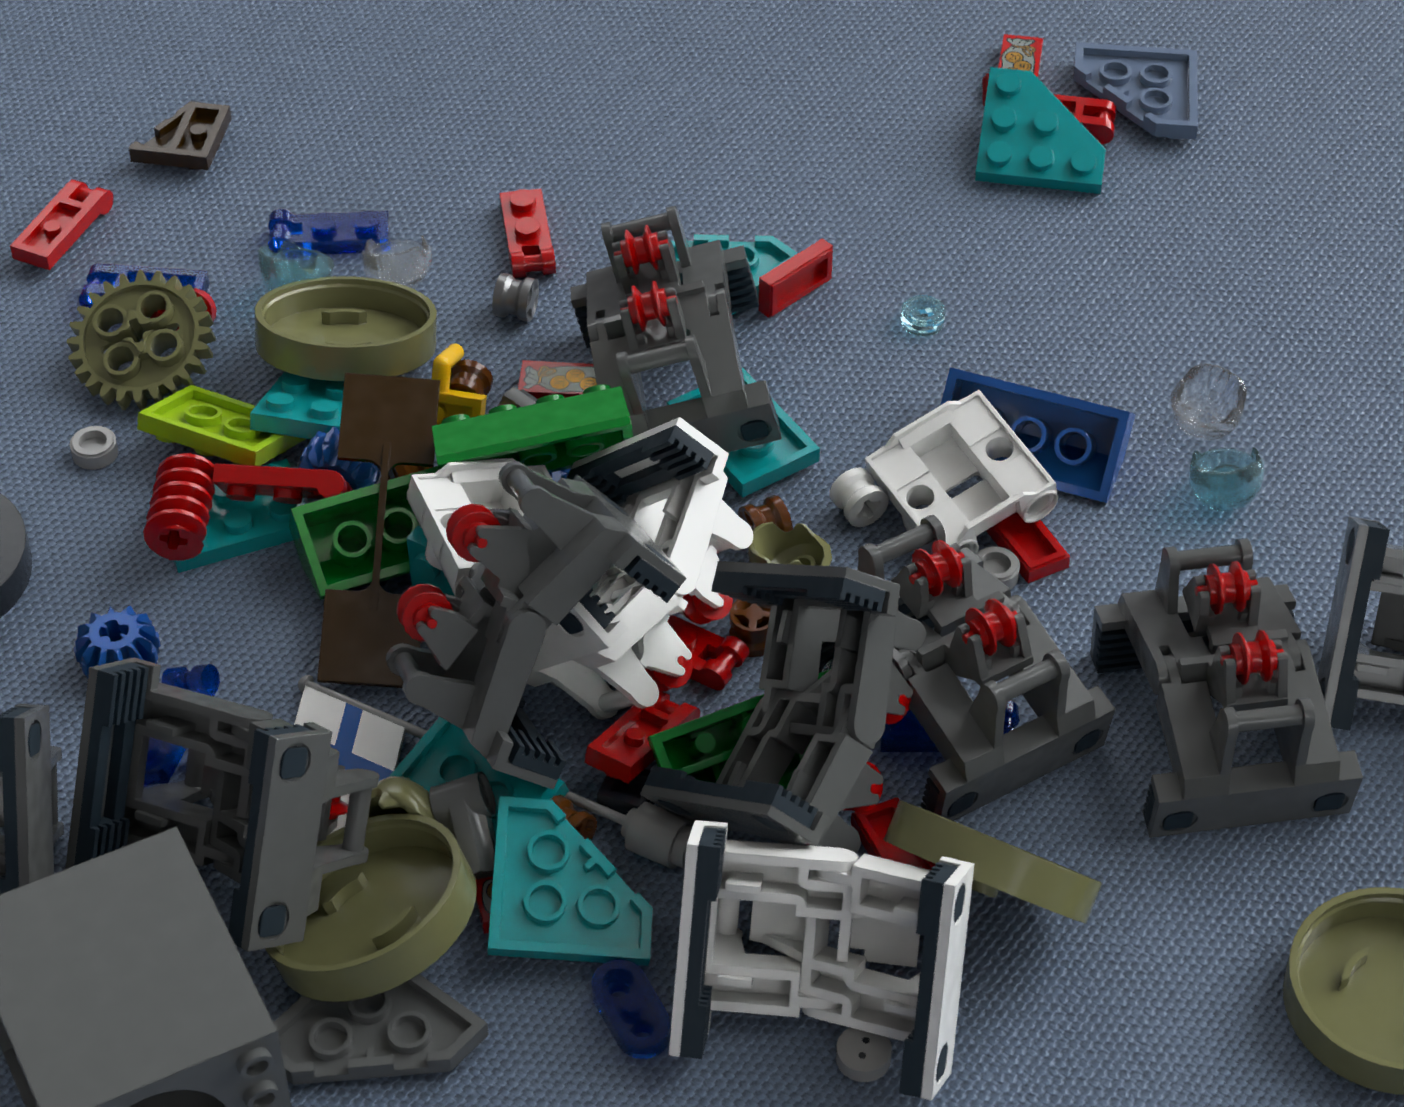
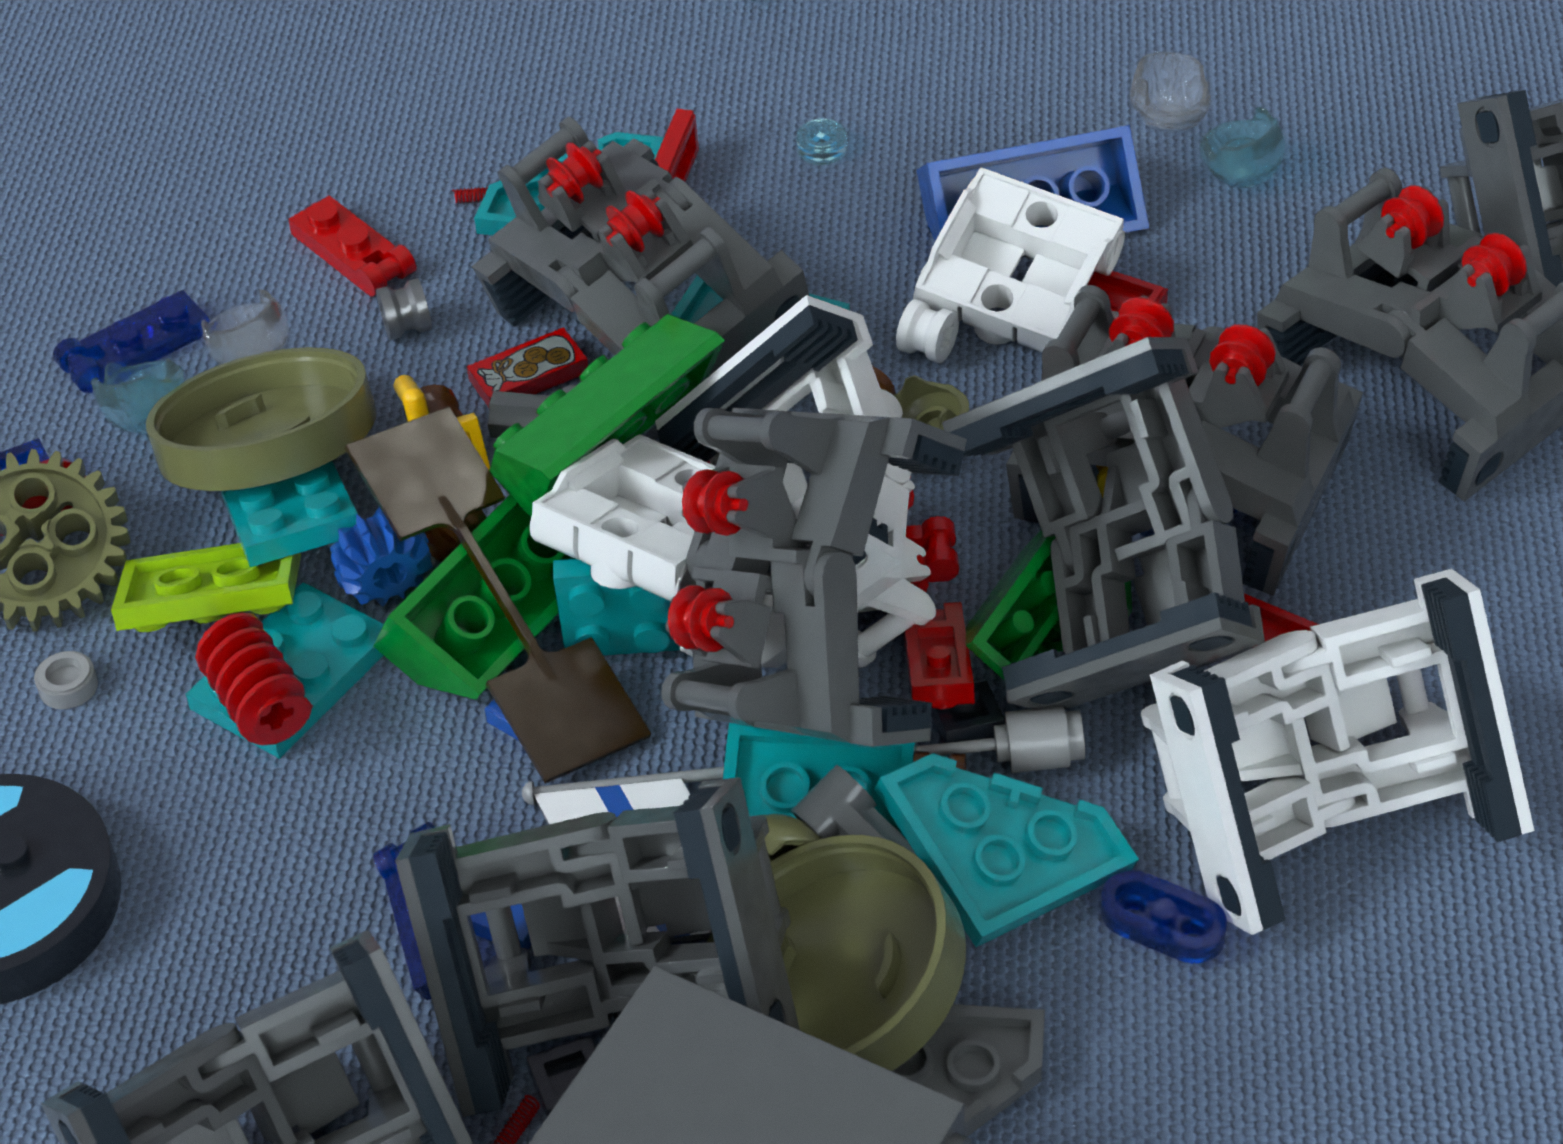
camera: 30 degrees left, 0 degrees up
(116, 638) = (295, 862): blue gear -> none
(282, 483) = (346, 599): red plate -> none
(750, 625) = (939, 497): reddish brown wheel -> none
(863, 1055) = (1409, 834): light grey tile -> none
(995, 862) = (1384, 574): olive brick -> none

